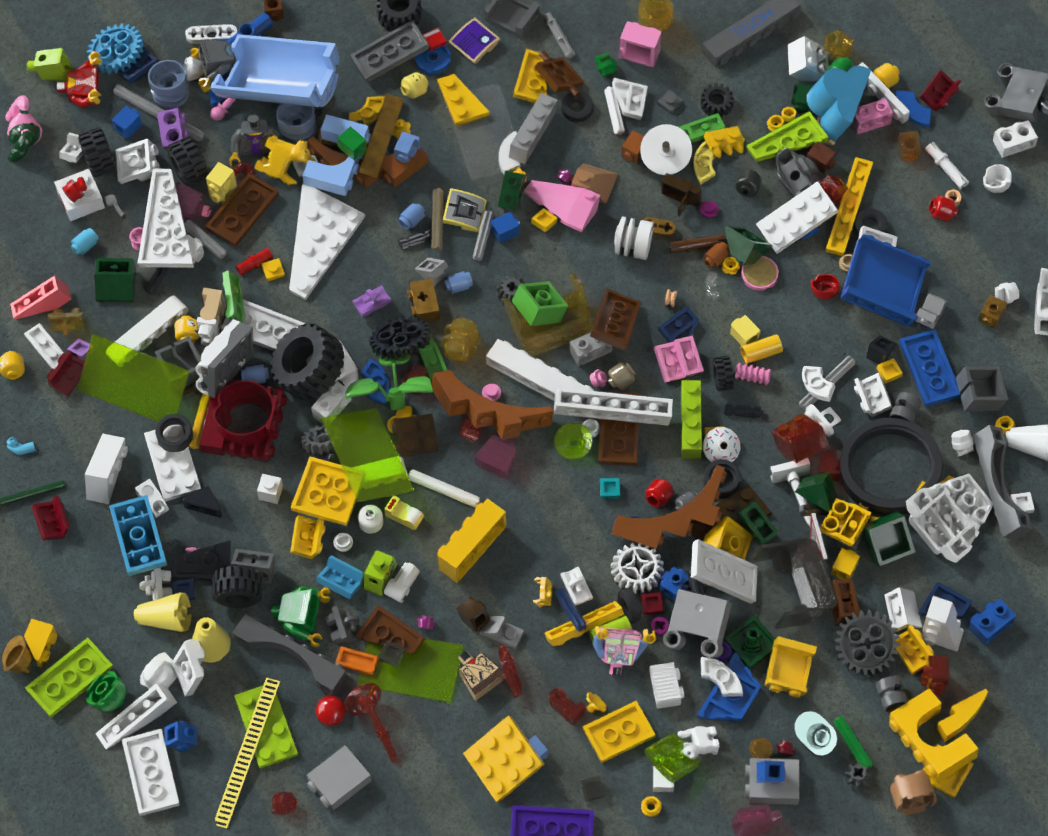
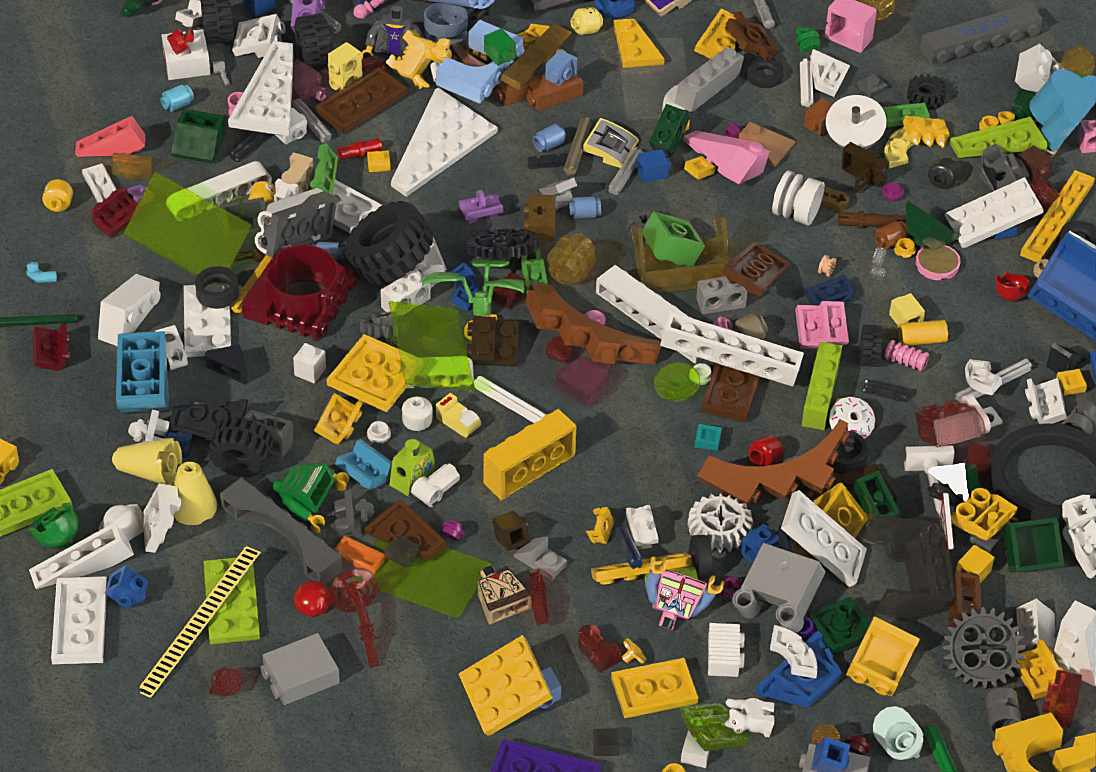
camera: 10 degrees right, 15 degrees down
(652, 603) = (729, 562): dark red plate -> none

